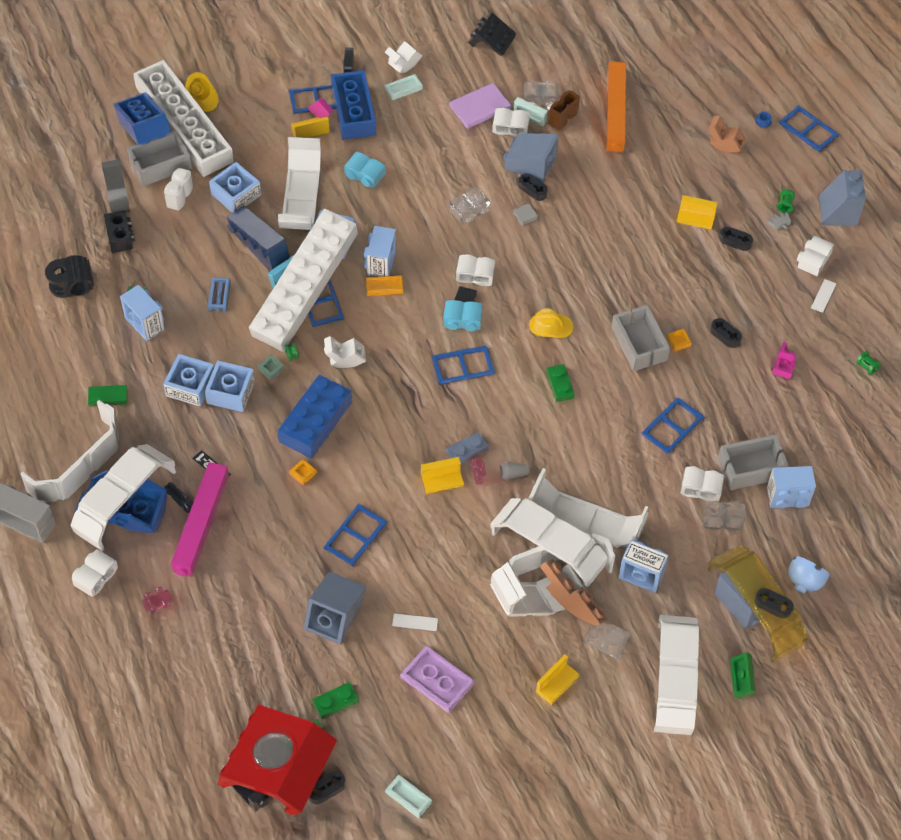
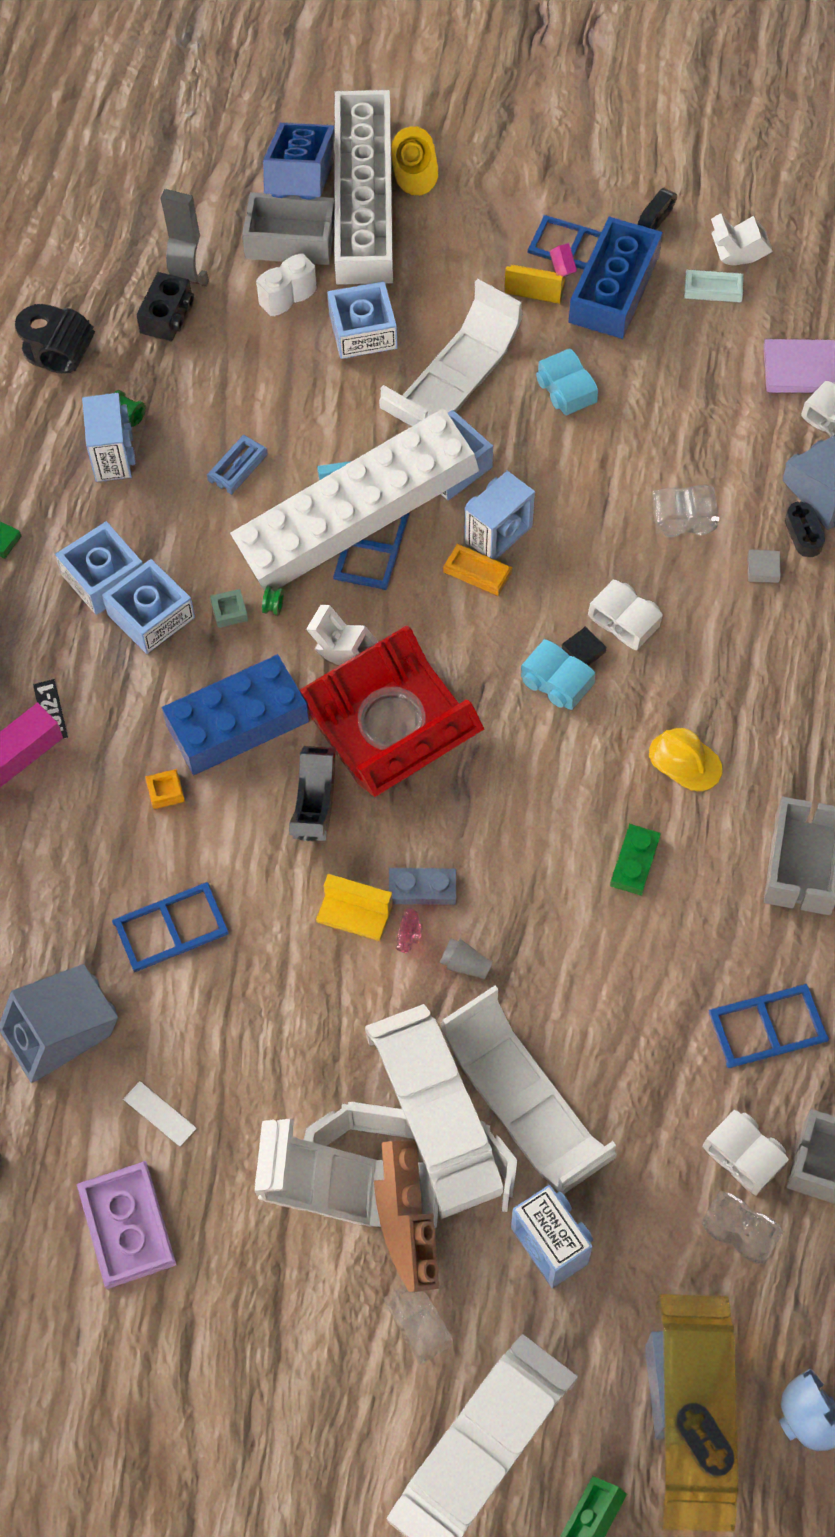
camera: 35 degrees right, 5 degrees up
(258, 238) = (342, 406): wedge -> none
(384, 433) = (314, 794): none -> black arch
(394, 376) = (388, 712): none -> red panel
(460, 353) = (501, 771): blue window -> none
(556, 680) = (295, 1340): yellow panel -> none

